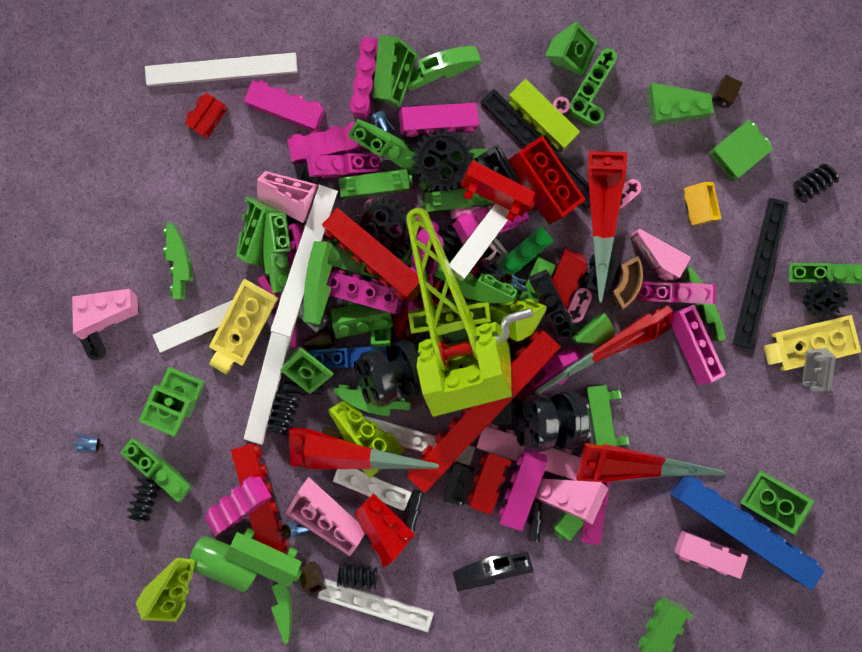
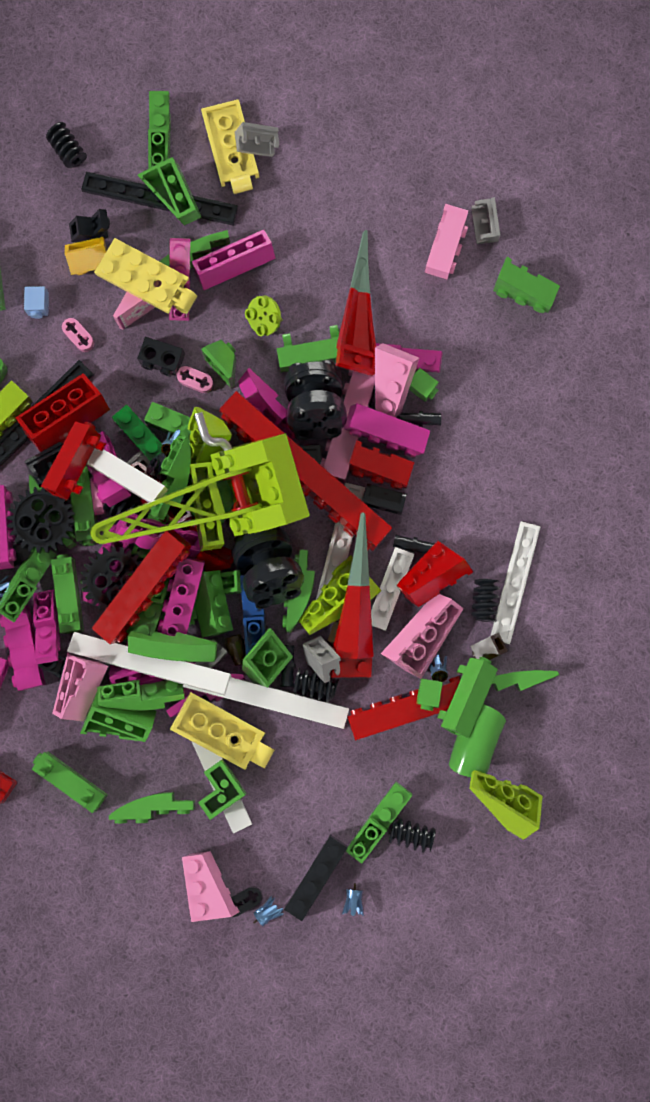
camera: 90 degrees left, 5 degrees down
(77, 361) = (267, 913): none -> flat silver piece
(98, 404) = (316, 877): none -> black arch
(171, 401) = (304, 806): bright green bracket -> none
(187, 329) = (226, 792): none -> bright green brick
(203, 186) = (69, 781): none -> bright green brick
(237, 506) = (414, 729): dark pink brick -> none
(268, 521) = (429, 694): none -> bright green brick
(306, 421) = (321, 658): none -> light grey hinge
(492, 568) = (470, 459): black slope -> none
(555, 307) = (184, 405): black slope -> none
(568, 272) = (168, 392): red wedge -> none
(605, 183) = (68, 353): red plate -> none
(629, 283) = (170, 327): medium nougat brick -> none
(632, 377) = (269, 322): none -> lime plate
(638, 332) = (220, 314): red plate -> none
(657, 154) = (36, 302): none -> light blue brick
(681, 253) = (138, 273): none -> light yellow hinge
(731, 206) = (88, 228): none -> black brick
(732, 593) = (485, 221): none -> light grey hinge
(741, 150) = (32, 218): bright green brick -> none
(748, 531) = (422, 207): blue brick -> none
(768, 285) = (172, 189): none -> bright green wedge
(777, 503) = (394, 178): bright green slope -> none
(825, 298) = (183, 134): black gear -> none

